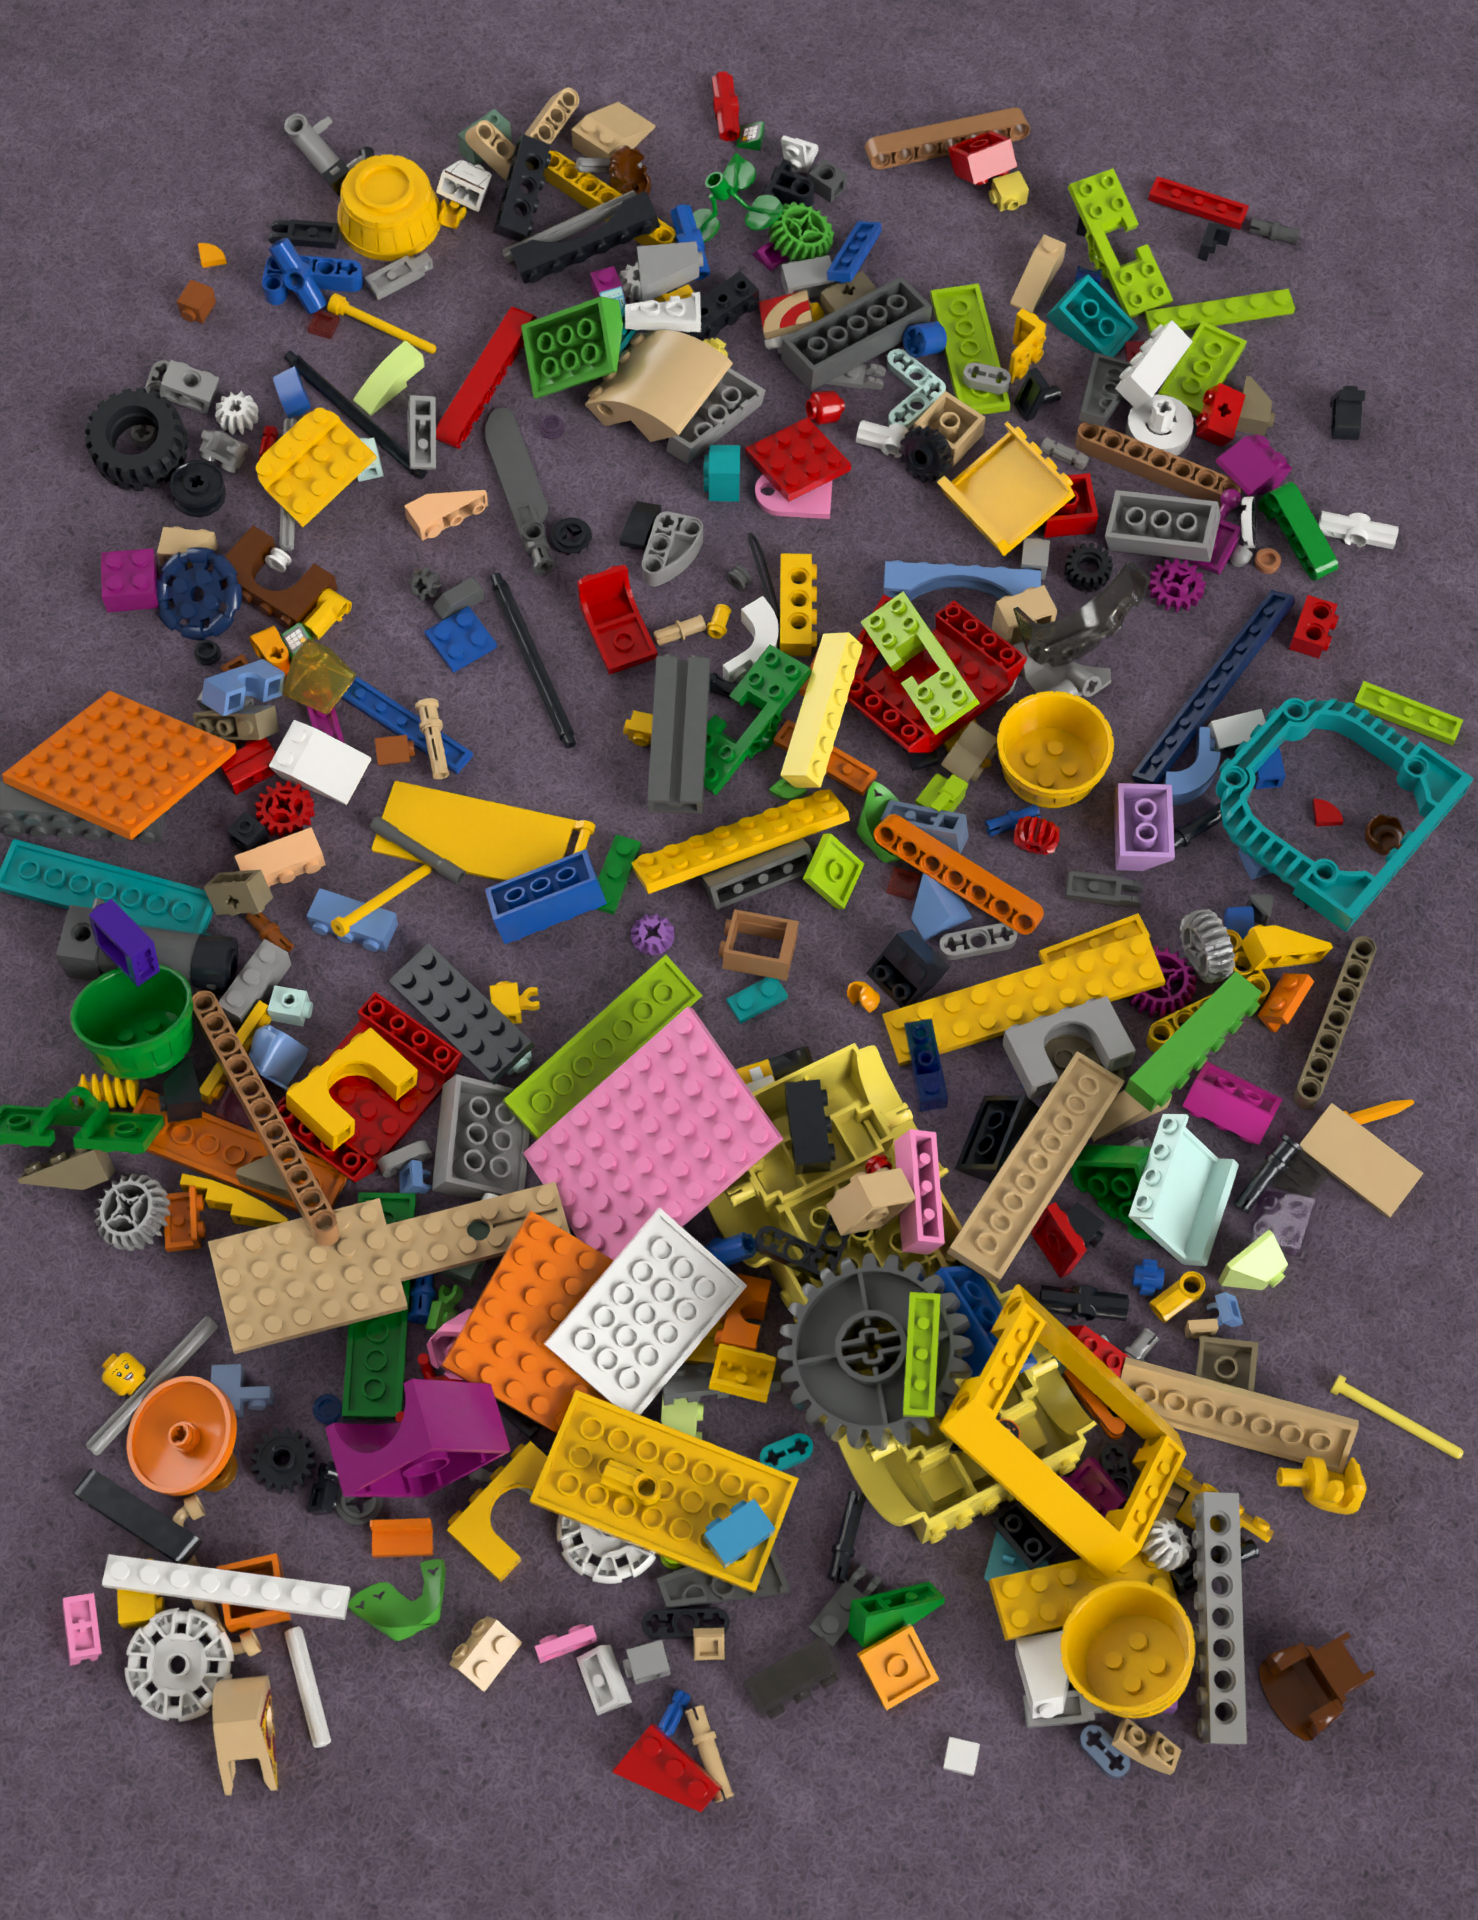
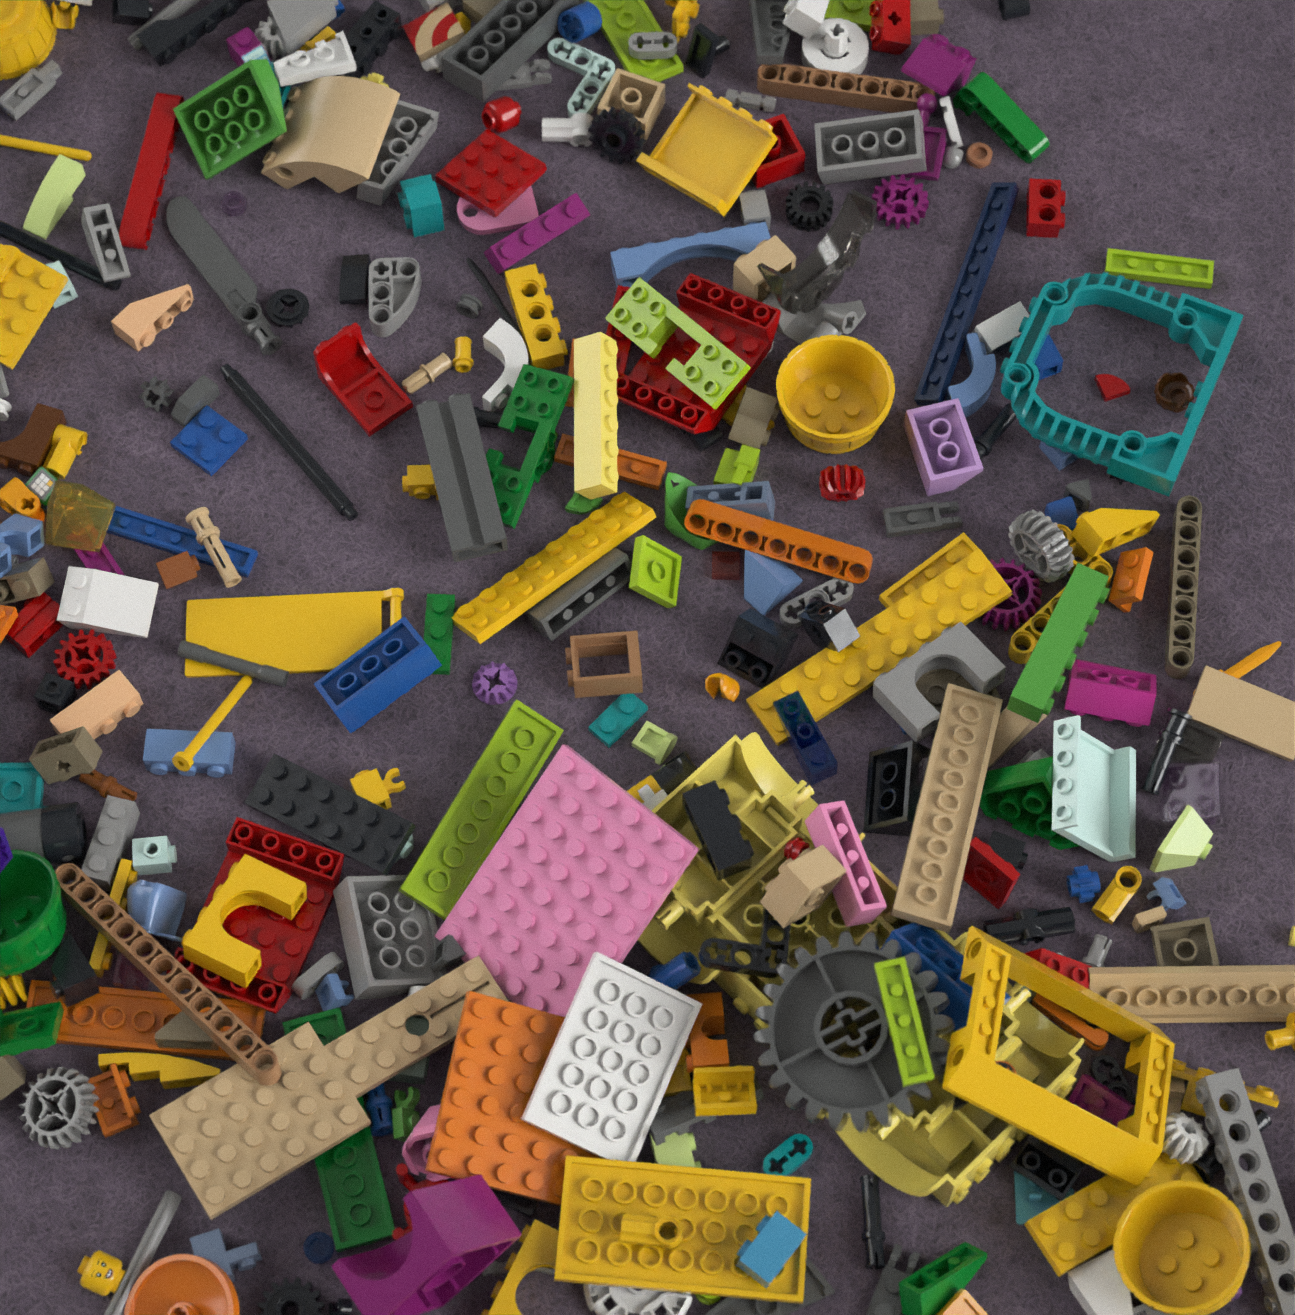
camera: 15 degrees left, 0 degrees up
(528, 1172) = (446, 954): none -> dark grey slope
(784, 1030) = (654, 742): none -> yellowish green tile
(822, 526) = (536, 233): none -> magenta brick
(980, 965) = (828, 625): none -> black brick
(1009, 820) = (810, 474): blue pin -> none
(1358, 529) = (1057, 102): white piece -> none

